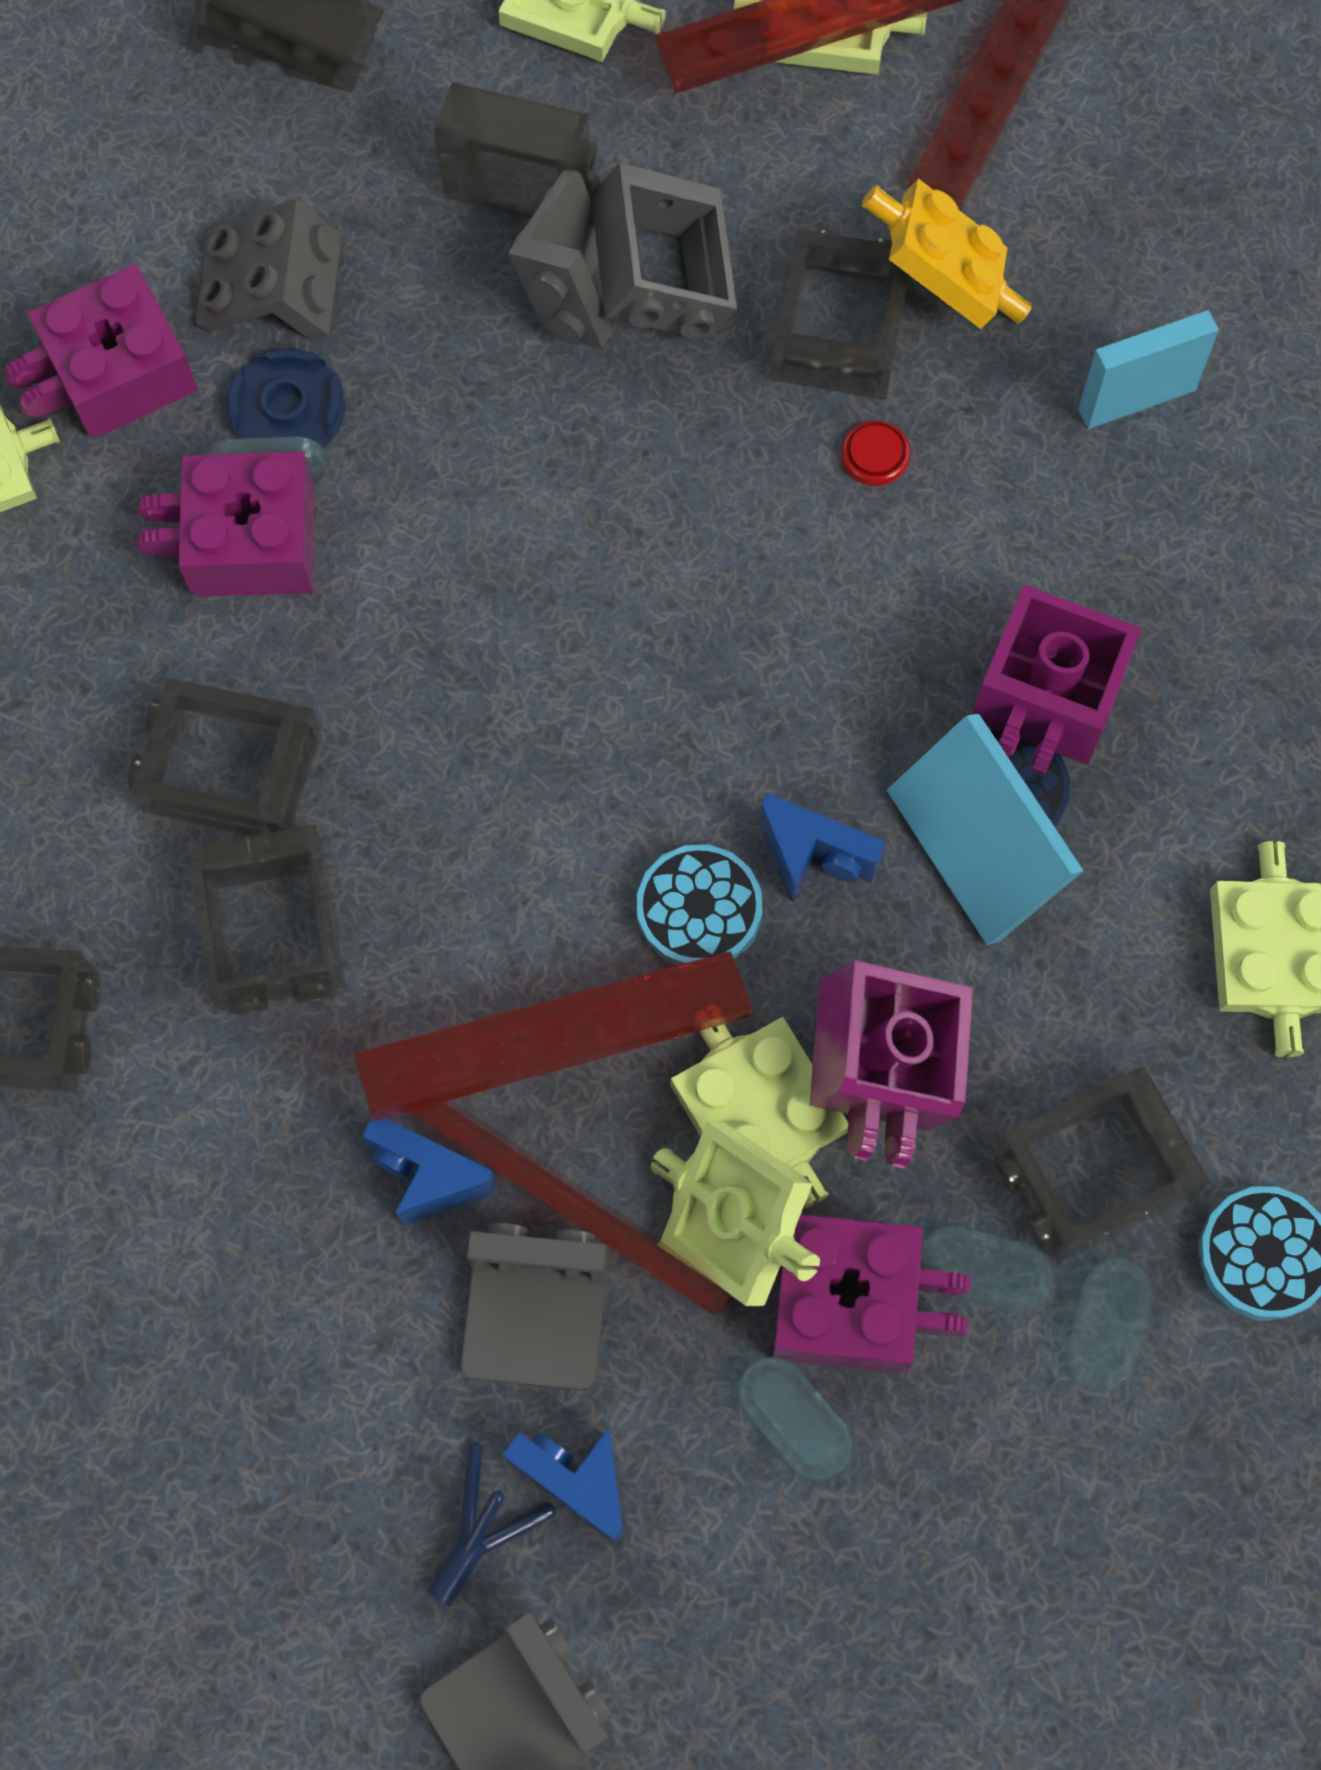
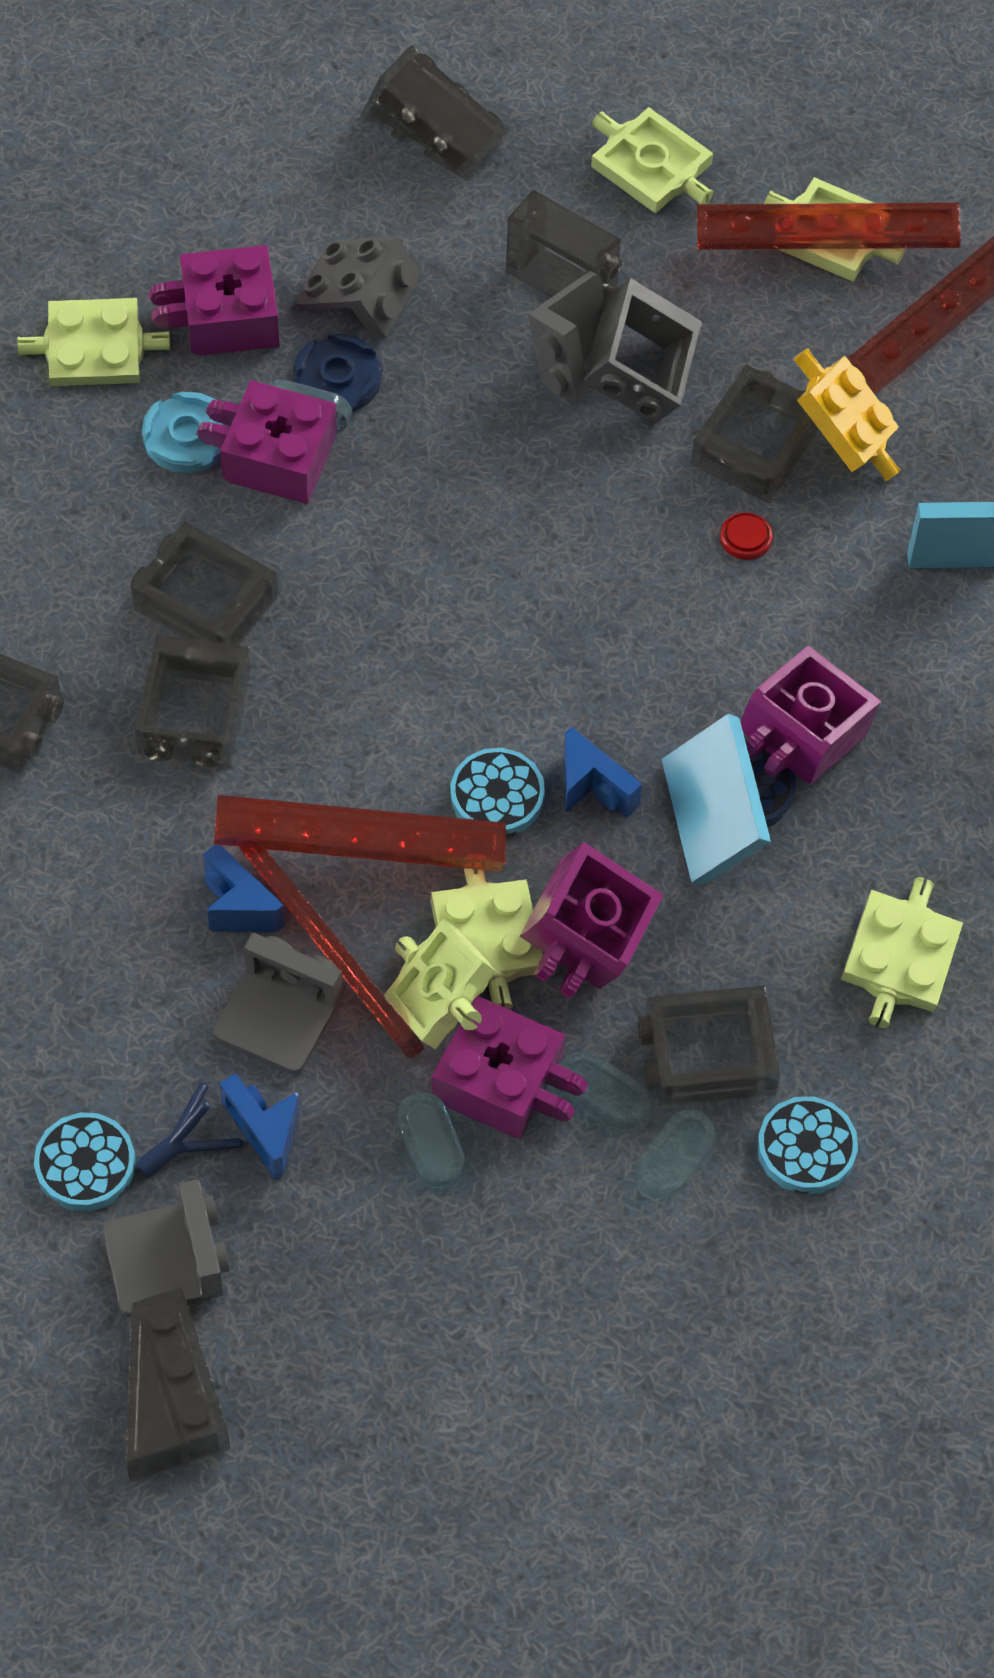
camera: 15 degrees right, 10 degrees down
(122, 572) = (179, 447): none -> medium azure tile
(361, 1615) = (84, 1161): none -> tile

